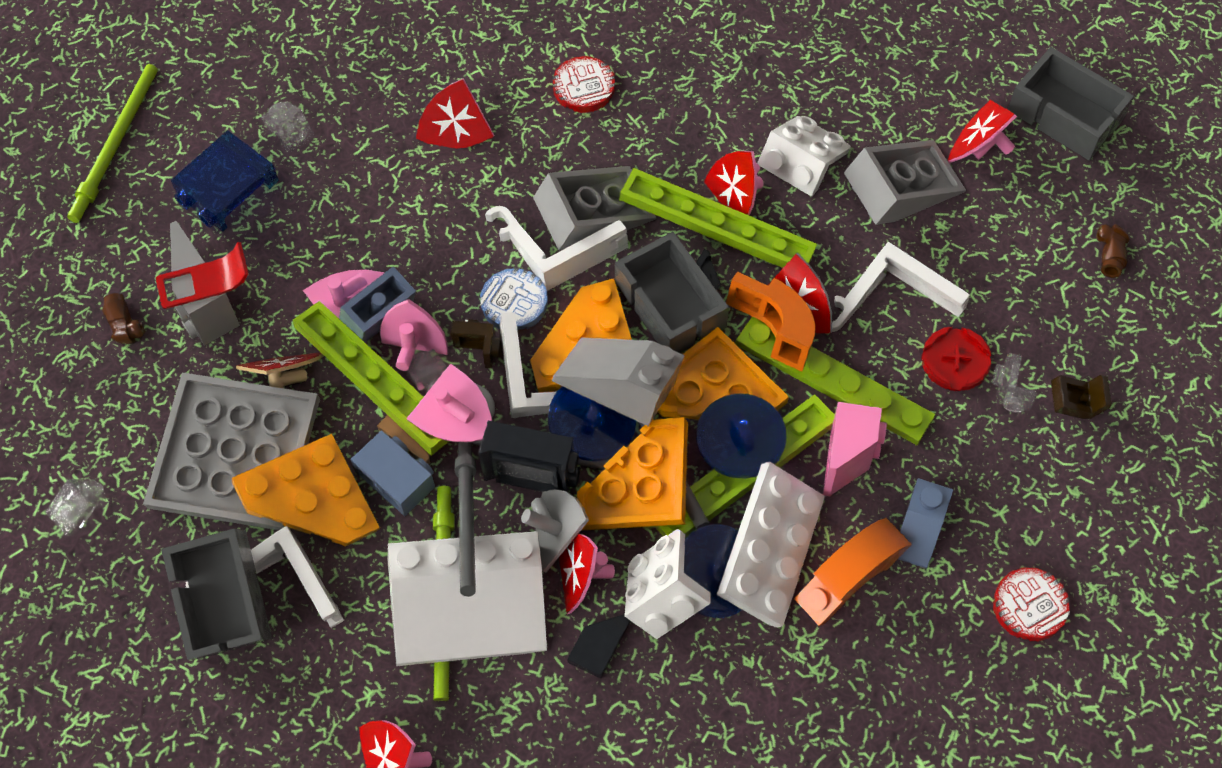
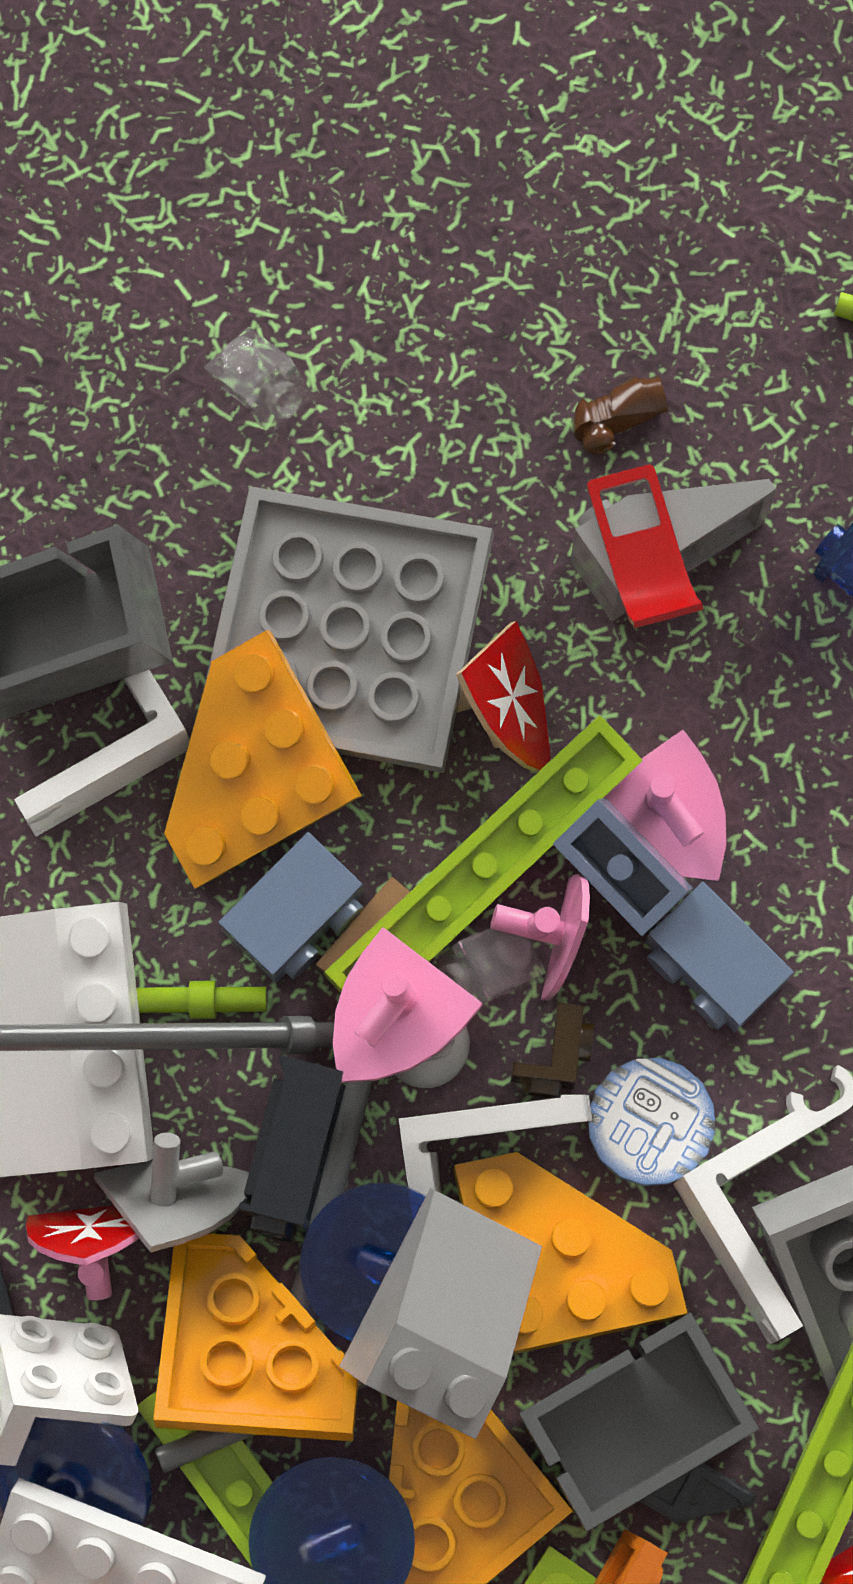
camera: 90 degrees right, 15 degrees up
(431, 264) = (716, 959): none -> sand blue brick

